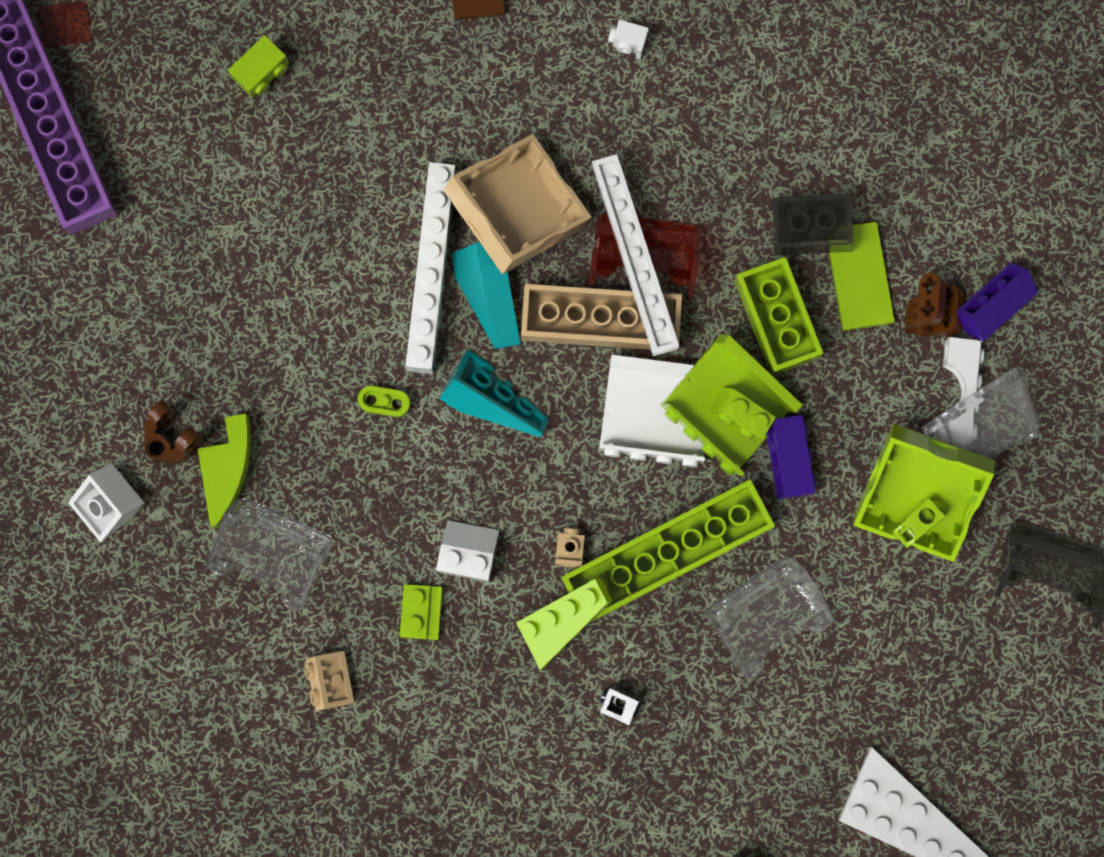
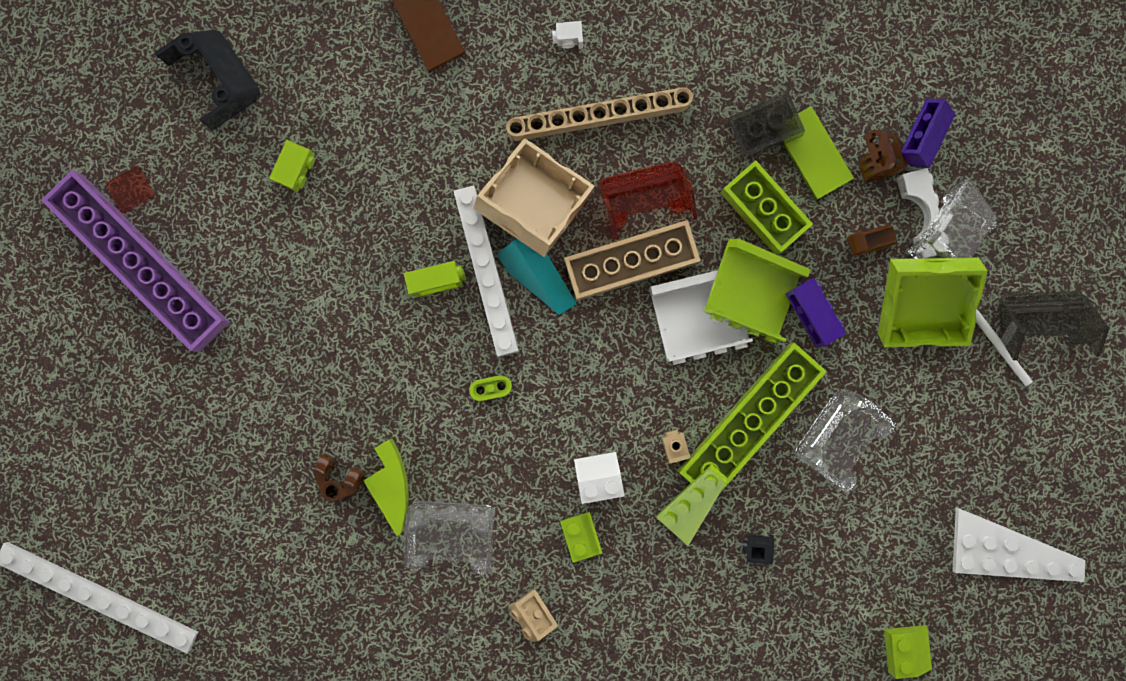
camera: 15 degrees left, 5 degrees up
(105, 501) = (309, 546): white slope -> none
(369, 253) = (434, 279): none -> lime window
(481, 394) = (565, 355): teal wedge -> none
(635, 255) = (641, 203): white plate -> none
(639, 148) = (606, 107): none -> tan beam
(743, 413) = (768, 293): lime brick -> none
(886, 399) = (872, 240): none -> reddish brown animal
(918, 523) = (936, 327): lime leg -> none
(990, 574) = (996, 341): none -> white bar

